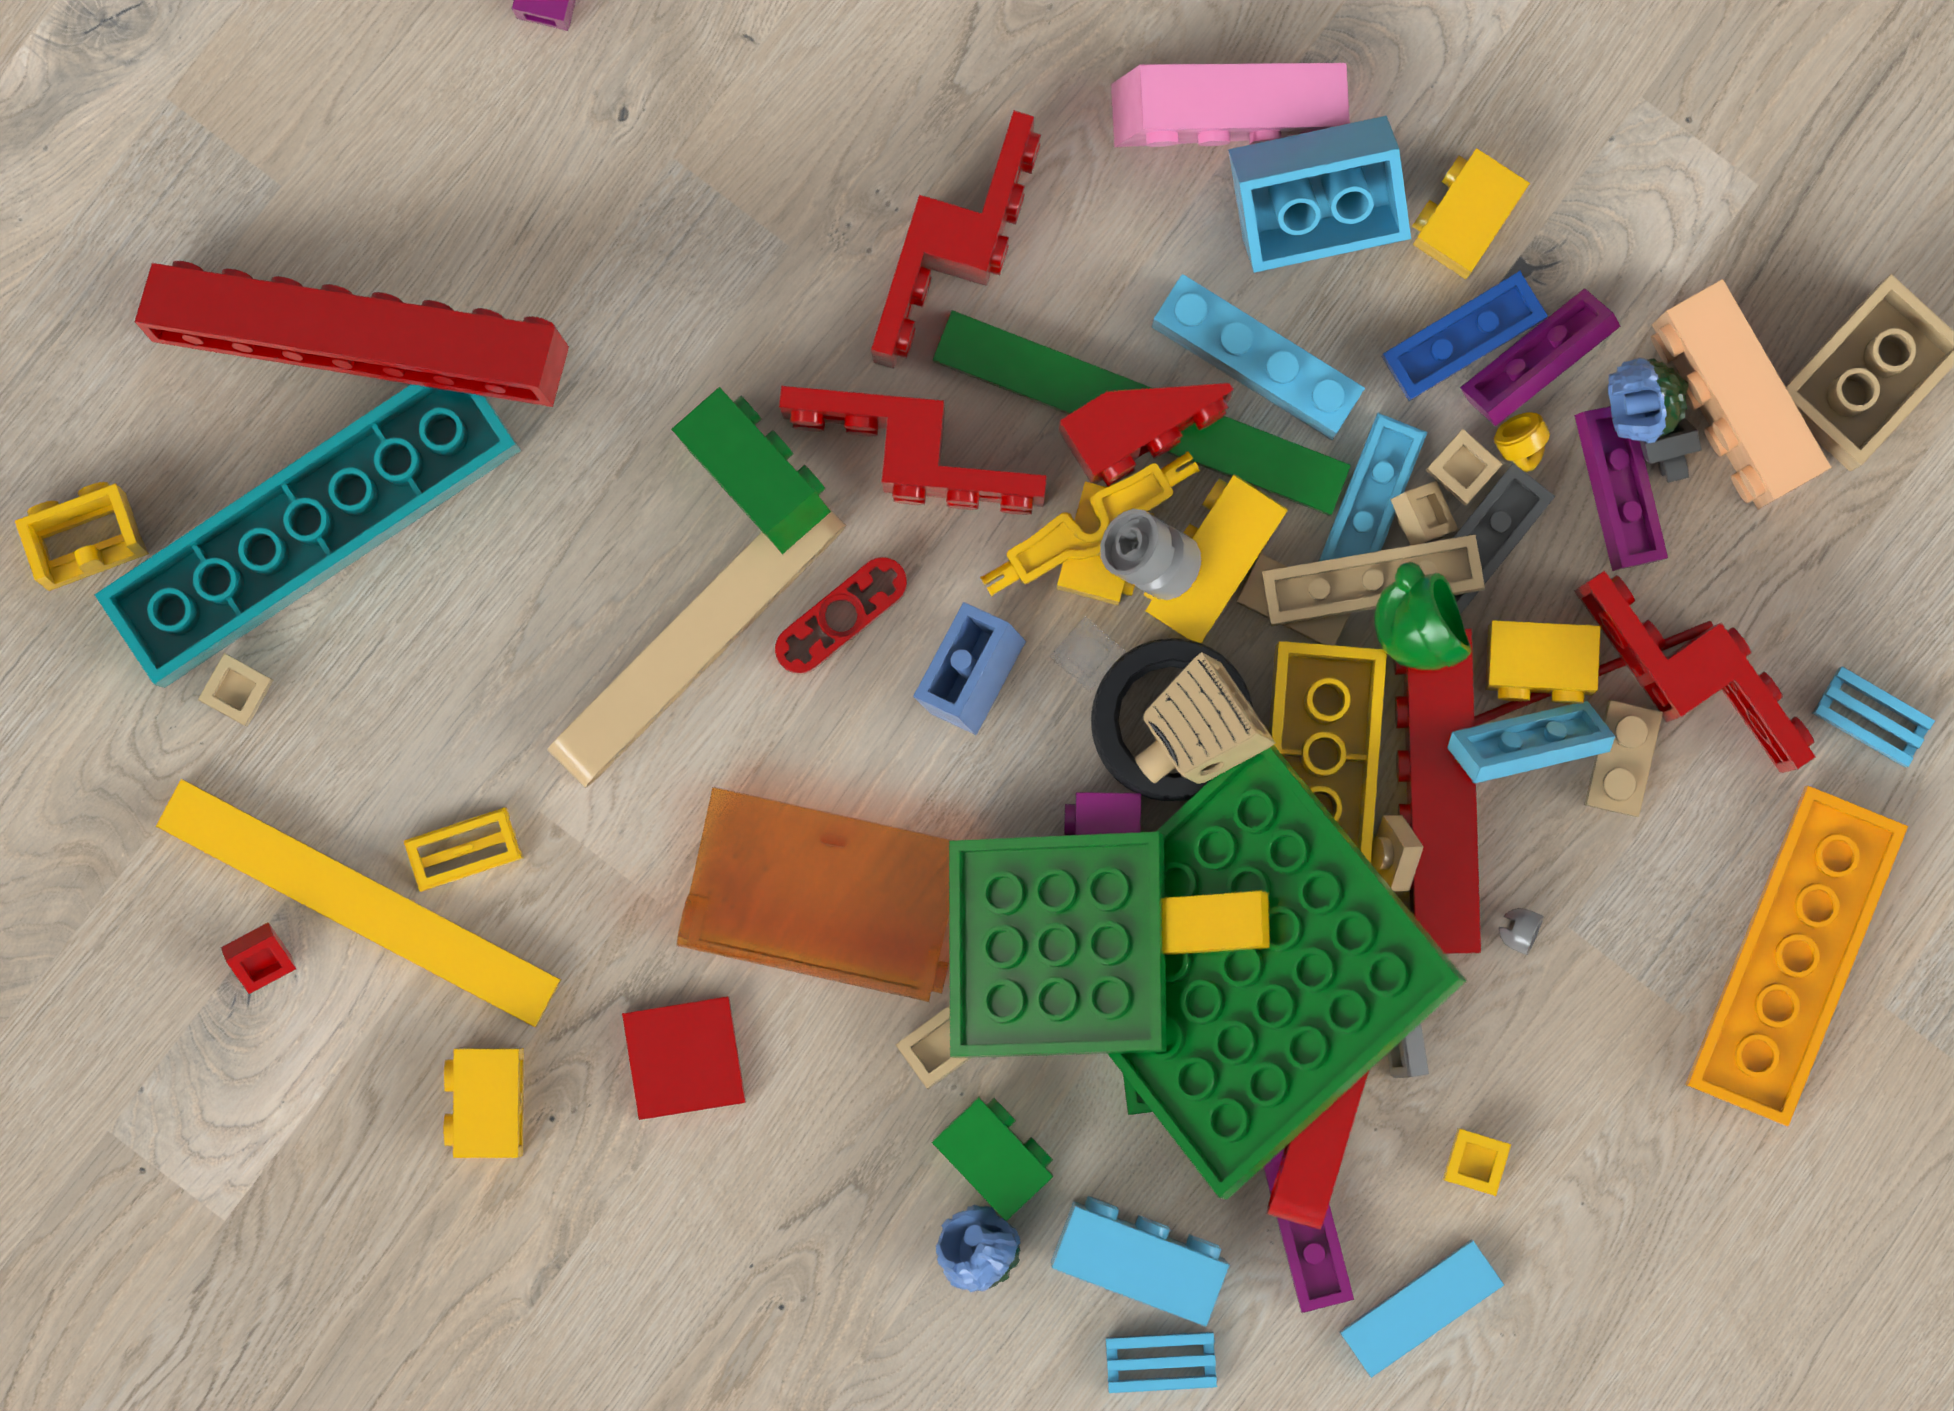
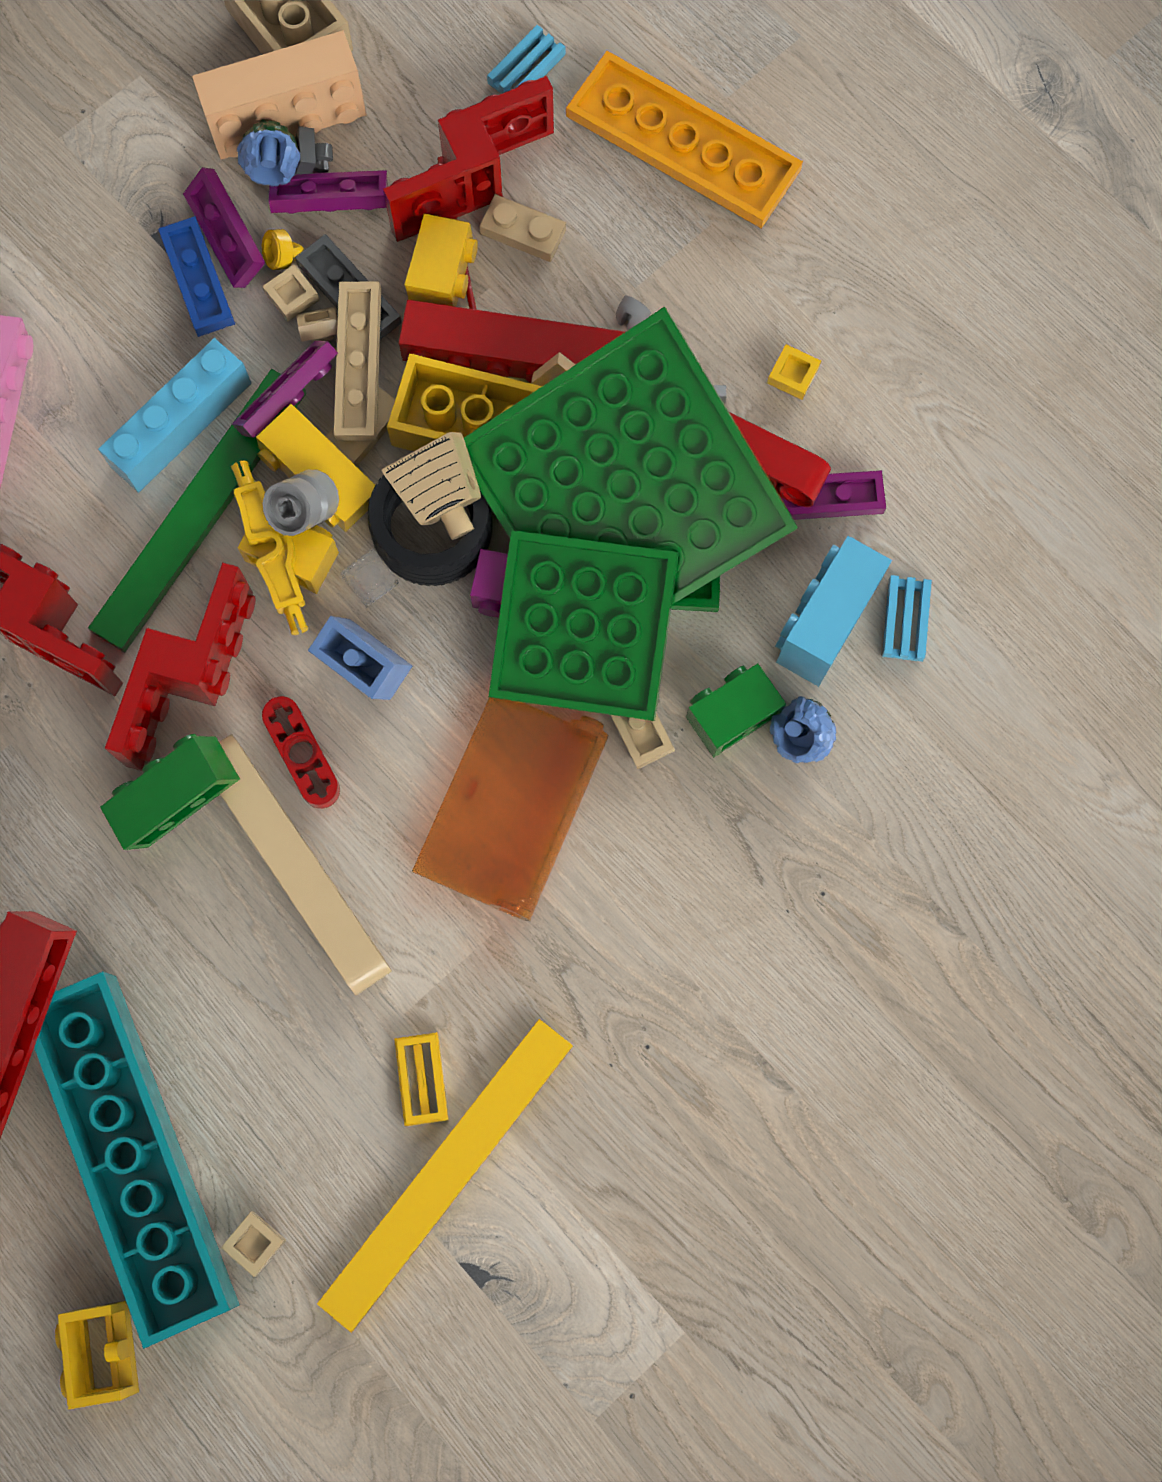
camera: 85 degrees left, 10 degrees down
(258, 958) = (475, 1263): red plate -> none
(485, 1102) = (627, 1095): yellow brick -> none
(684, 1058) = (618, 933): red tile -> none
(1129, 423) = (202, 498): red slope -> none
(1215, 922) = (588, 497): yellow tile -> none
(1315, 494) = (286, 389): none -> magenta plate
(1320, 193) = (64, 344): medium azure brick -> none
(1377, 478) = (279, 349): medium azure tile -> none
(1420, 620) = (393, 321): green piece -> none
(1421, 1308) = (894, 430): medium azure tile -> none
(1470, 212) = (109, 255): yellow brick -> none
(1530, 742) = (498, 274): medium azure plate -> none

